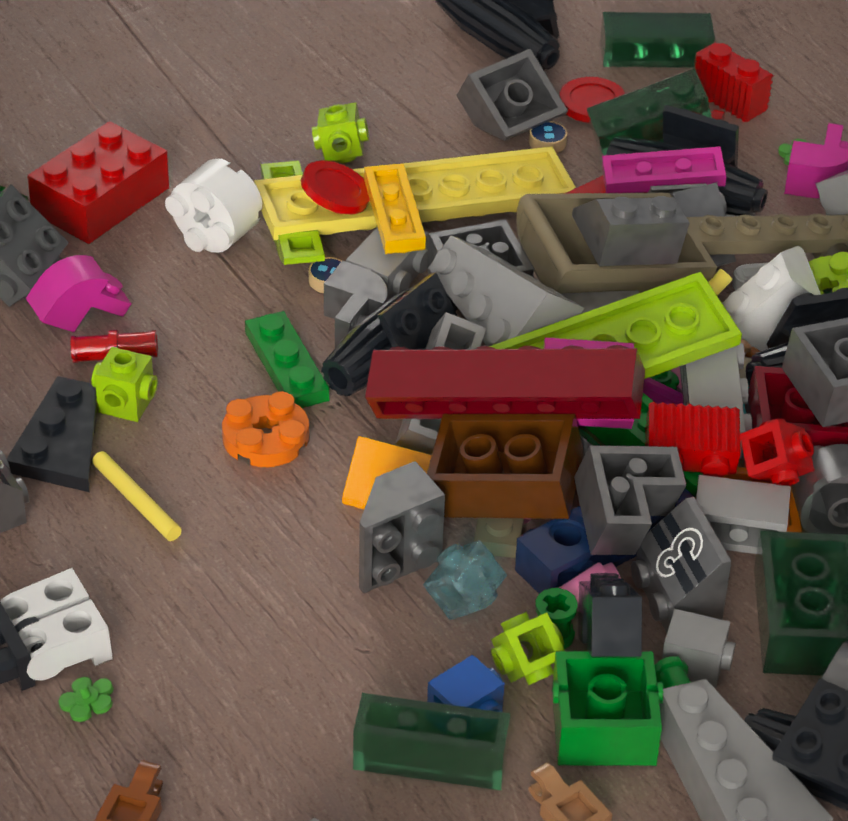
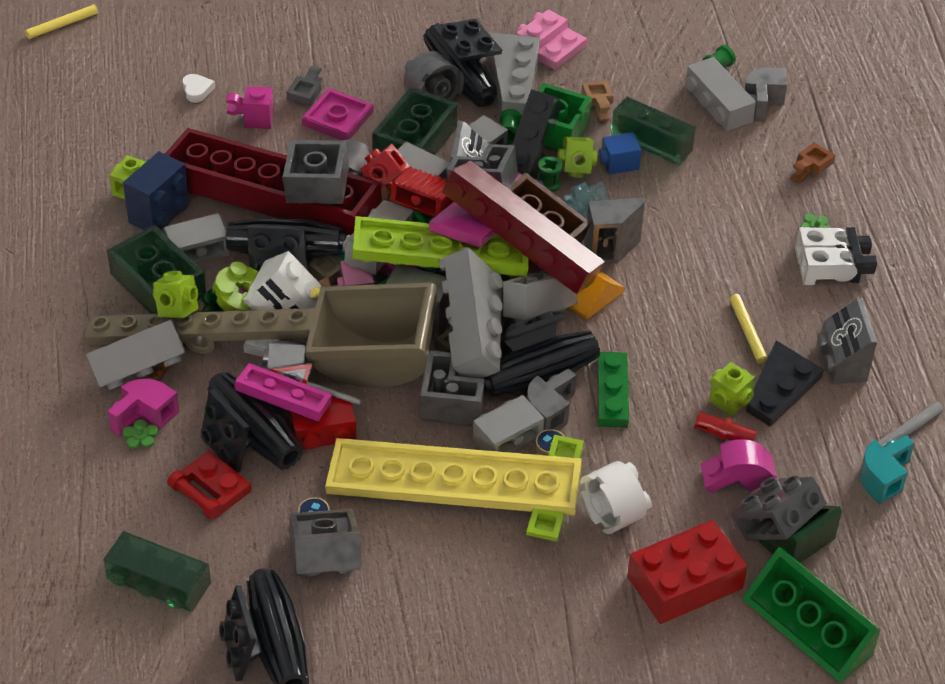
camera: 155 degrees left, 5 degrees up
(244, 425) = (663, 336): orange plate -> none
(335, 187) = (522, 466): red piece -> none
(340, 133) = (479, 549): lime brick -> none
(394, 208) = (491, 431): yellow plate -> none
(585, 93) = (254, 534): red piece -> none
(633, 230) = (371, 292): flat silver slope -> none
(641, 111) = (243, 462): clear green brick -> none
(733, 81) = (140, 500): red brick -> none

